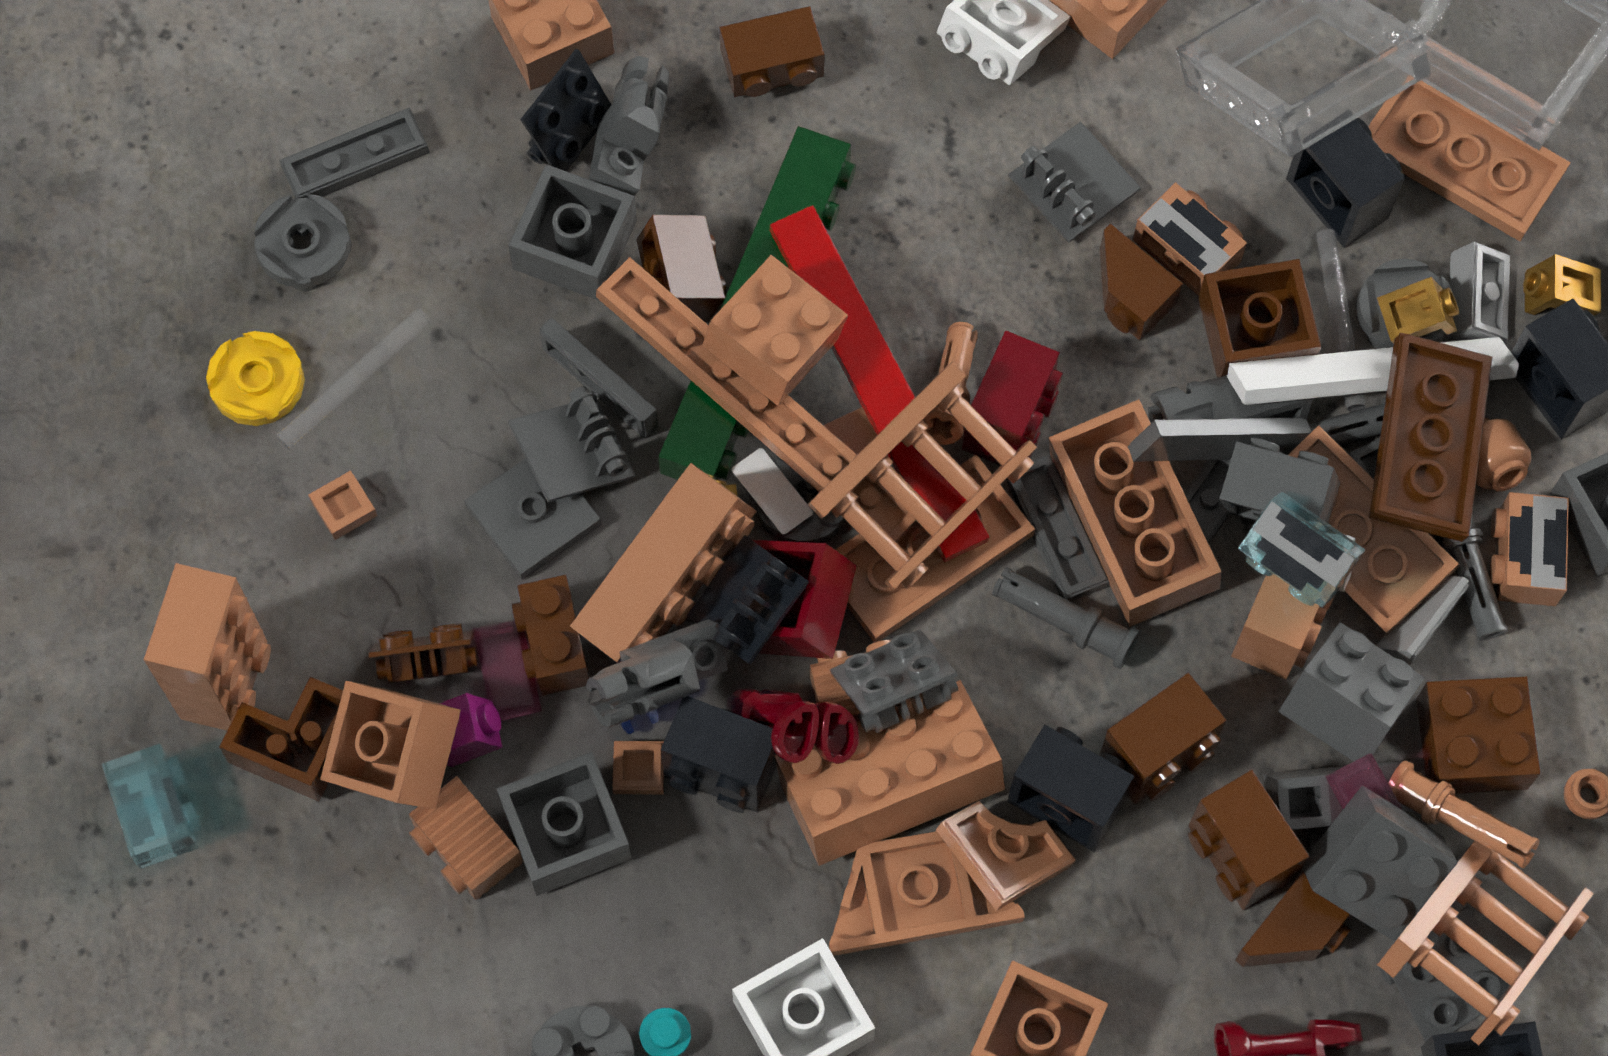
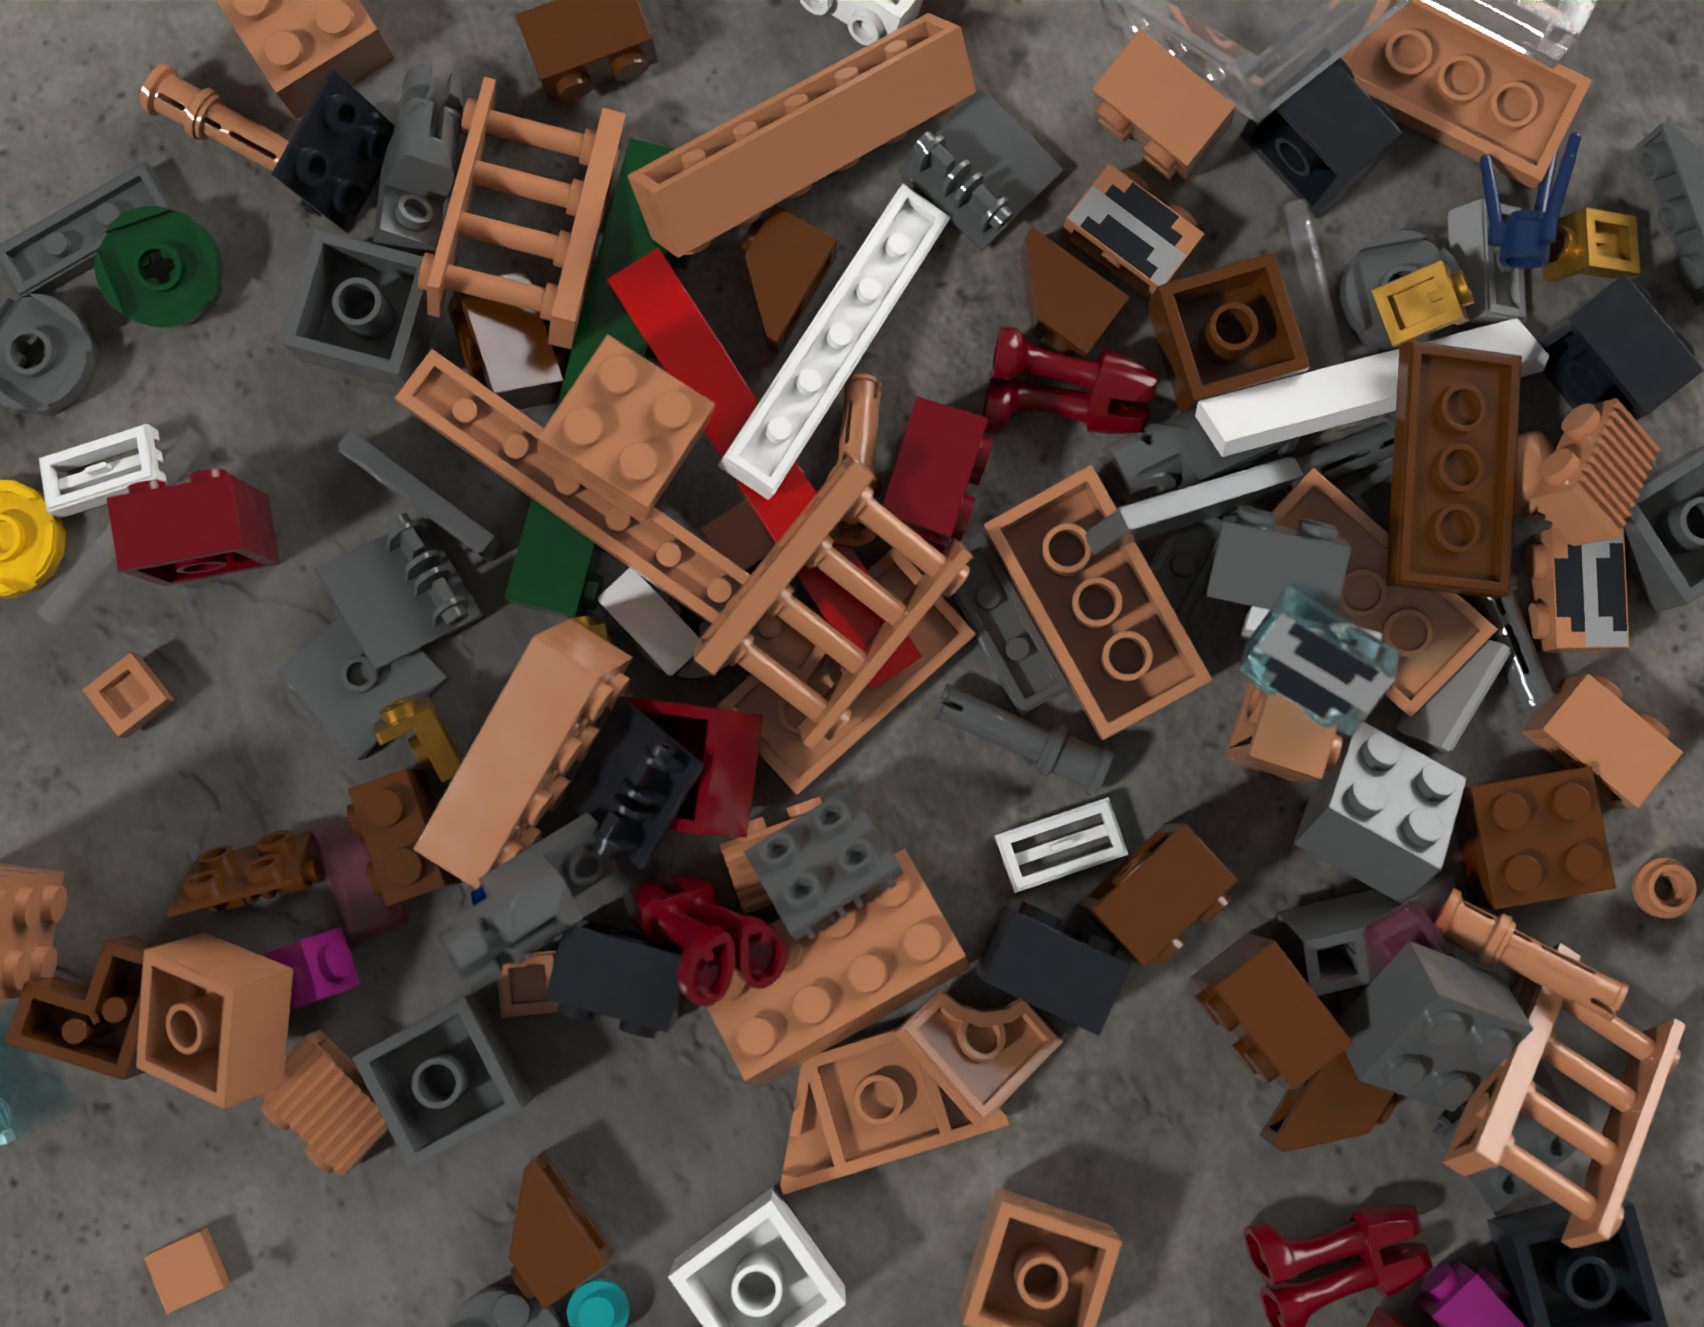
camera: 10 degrees left, 15 degrees up
(327, 964) = (186, 1270): none -> nougat tile
(345, 340) = (102, 480): none -> white tile
(418, 379) = (192, 528): none -> dark red brick
(429, 164) = (127, 251): none -> dark green plate
(460, 80) = (206, 116): none -> nougat pin
(586, 563) = (432, 741): none -> pearl gold bracket
(635, 966) = (553, 1236): none -> reddish brown slope
(741, 202) = (569, 250): none -> nougat fence
(909, 239) = (785, 270): none -> reddish brown slope
(936, 136) = (803, 135): none -> nougat brick
(943, 292) = (834, 343): none -> white tile
(1085, 687) = (1012, 861): none -> white tile
(1156, 343) = (1113, 384): none -> dark red piece
(1221, 145) = (1161, 107): none -> nougat brick
(1508, 270) = (1529, 233): none -> dark blue plant
(1542, 447) = (1594, 473): none -> nougat brick
(1556, 671) = (1596, 729): none -> nougat brick

